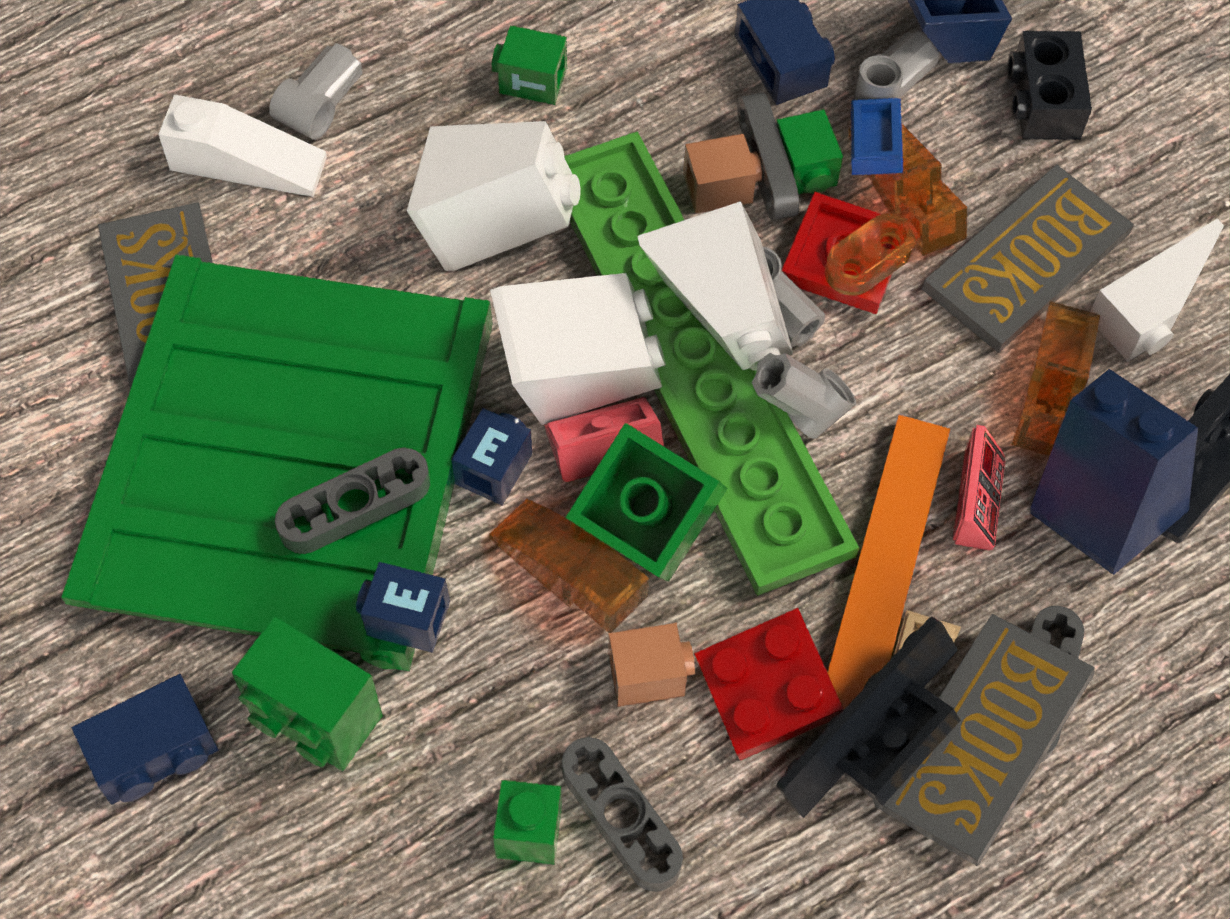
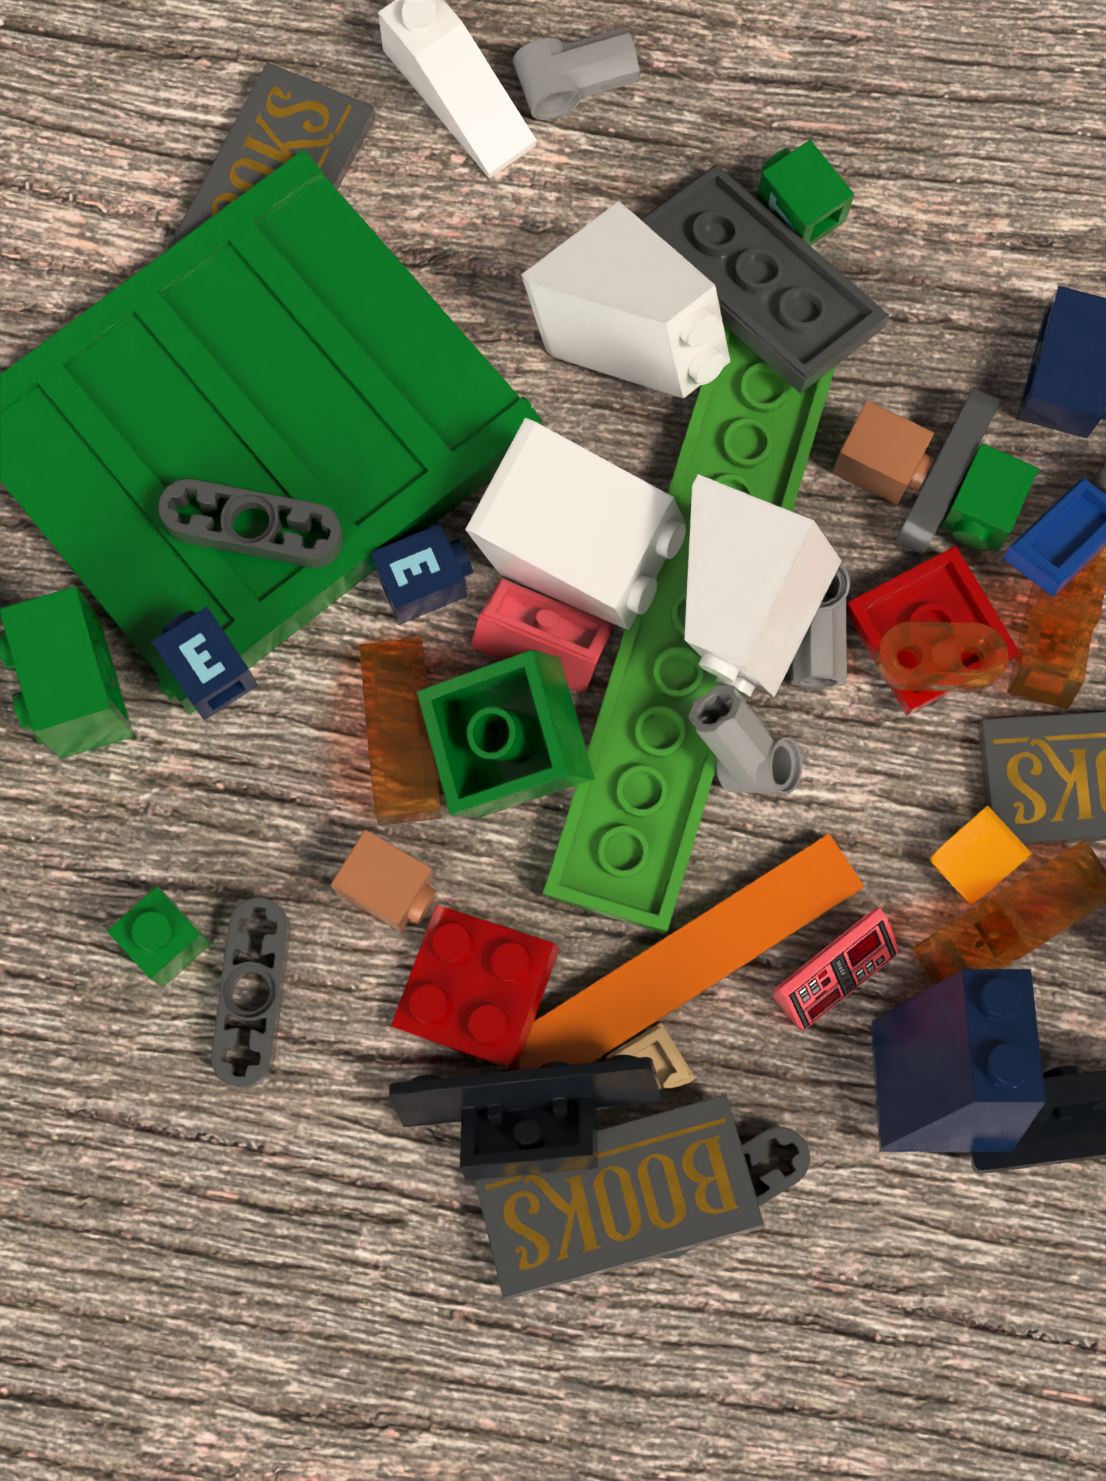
camera: 40 degrees right, 15 degrees up
(593, 125) = (767, 279): none -> dark grey tile
(1000, 354) = (979, 855): none -> light orange slope

